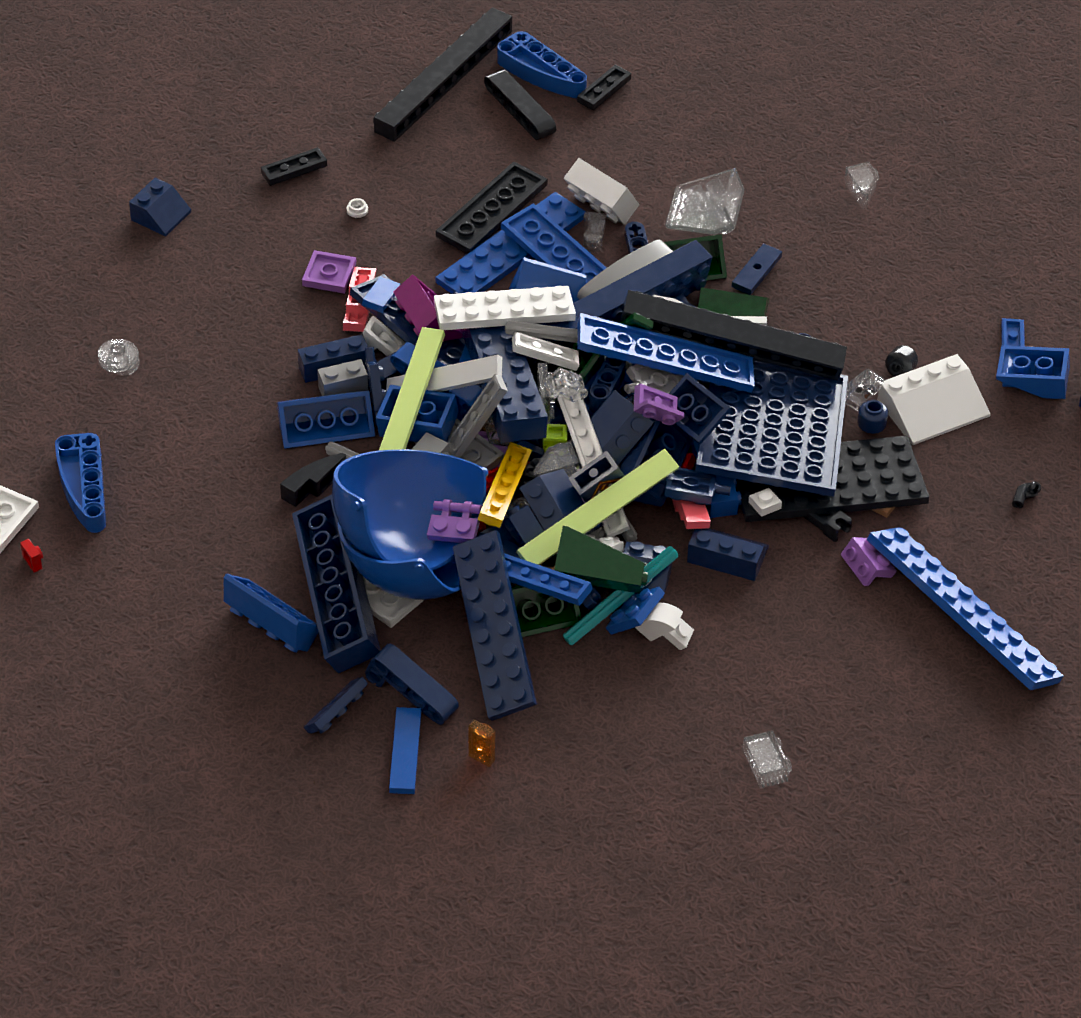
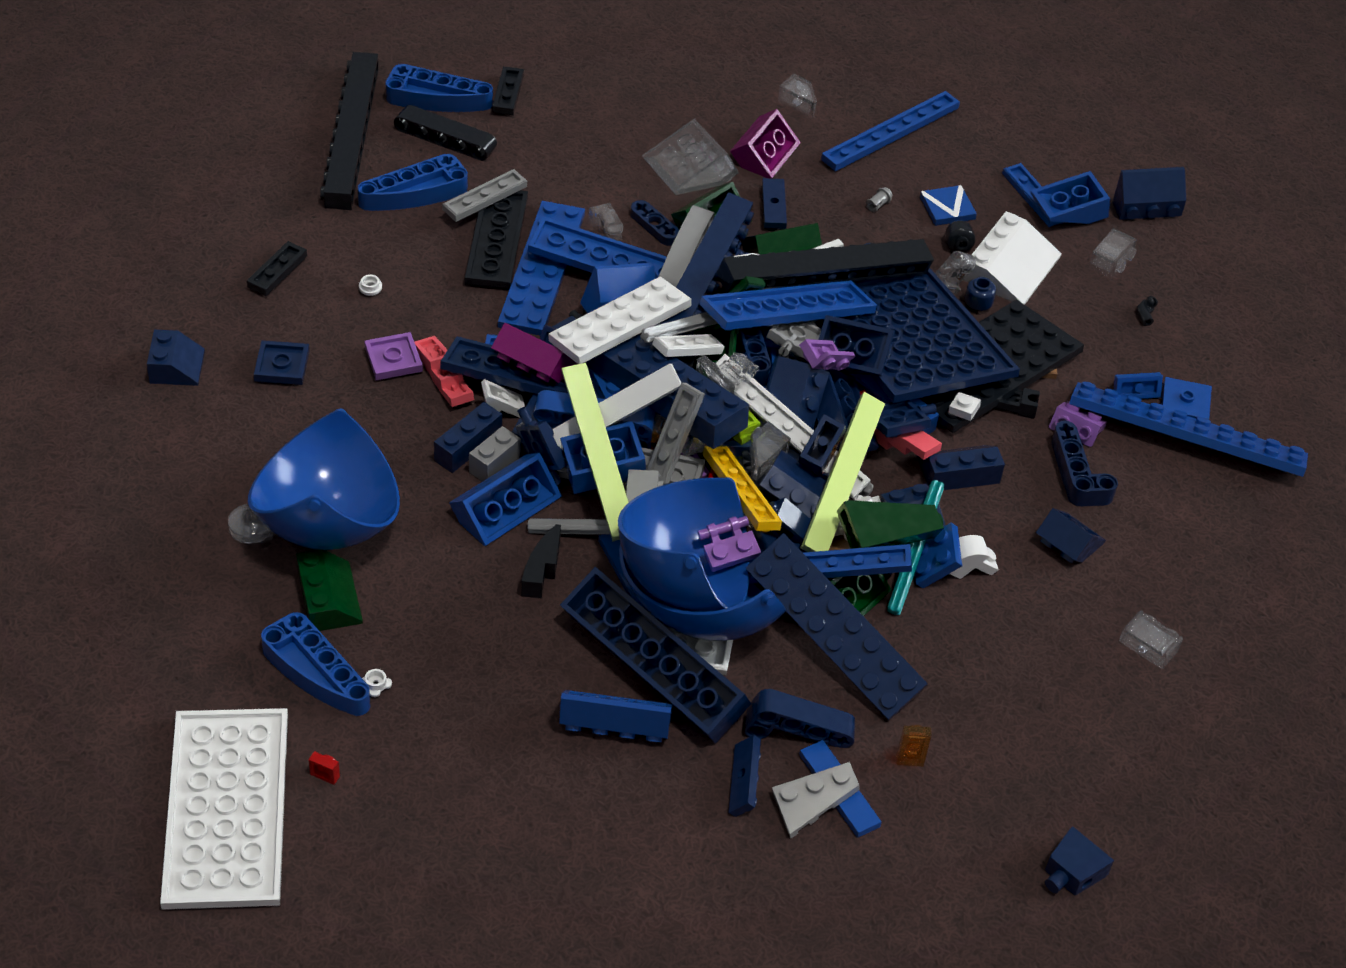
camera: 35 degrees left, 0 degrees up
(118, 512) = (379, 676): none -> white plate
(135, 429) = (328, 590): none -> dark green slope
(183, 349) = (326, 487): none -> blue windscreen
(238, 242) = (281, 362): none -> dark blue plate
(372, 743) = (812, 795): none -> light grey wing
(380, 294) = (476, 356): tile -> none
(457, 139) = (415, 185): none -> blue beam
(506, 168) = (484, 195): none -> light grey tile
(541, 893) = (1076, 864): none -> dark blue torso
(601, 192) = (592, 183): white brick -> none
(772, 646) = (1069, 536): none -> dark blue slope
(793, 216) = (766, 145): none -> magenta slope
(821, 610) = (1080, 485): none -> dark blue beam
(858, 301) = (881, 197): none -> light grey pin
(920, 331) = (948, 205): none -> blue tile
(923, 245) = (889, 131): none -> blue plate
(951, 552) = (1139, 385): none -> blue tile
(992, 583) = (1187, 397): none -> blue plate
(1036, 431) = (1113, 253): none -> clear brick

